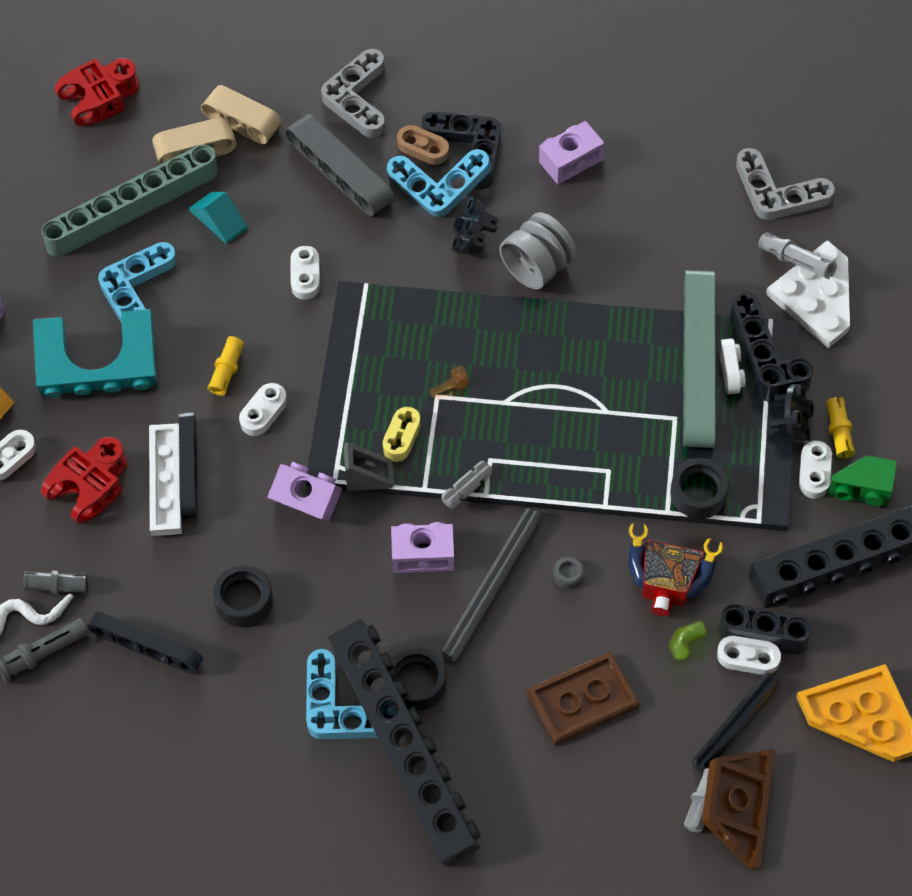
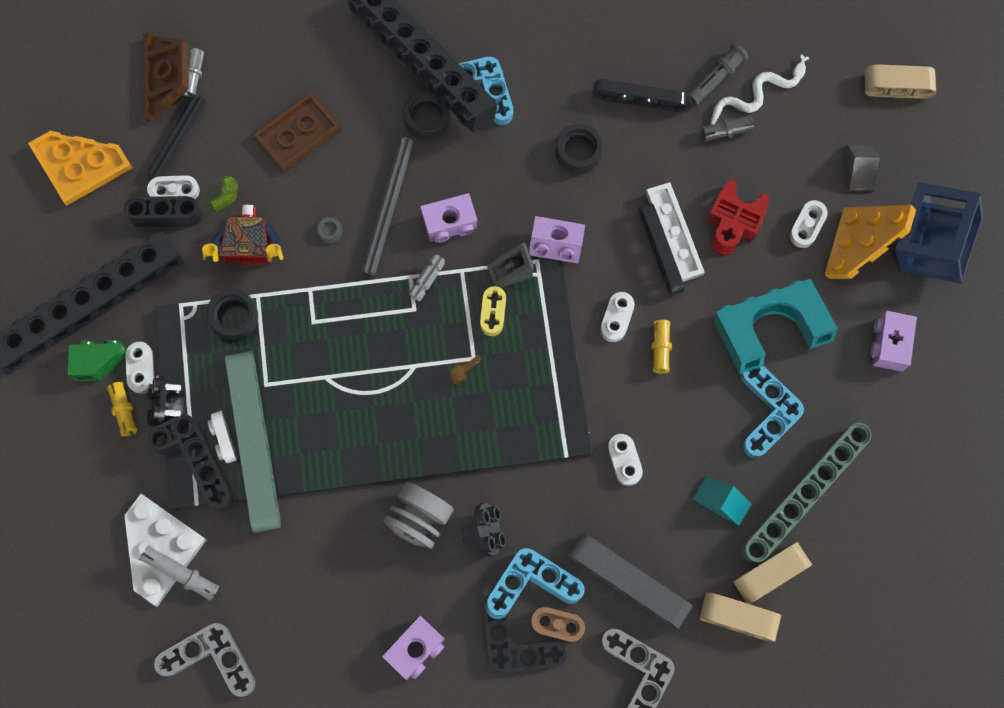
camera: 160 degrees right, 15 degrees up
(98, 89) = (884, 614): red piece -> none

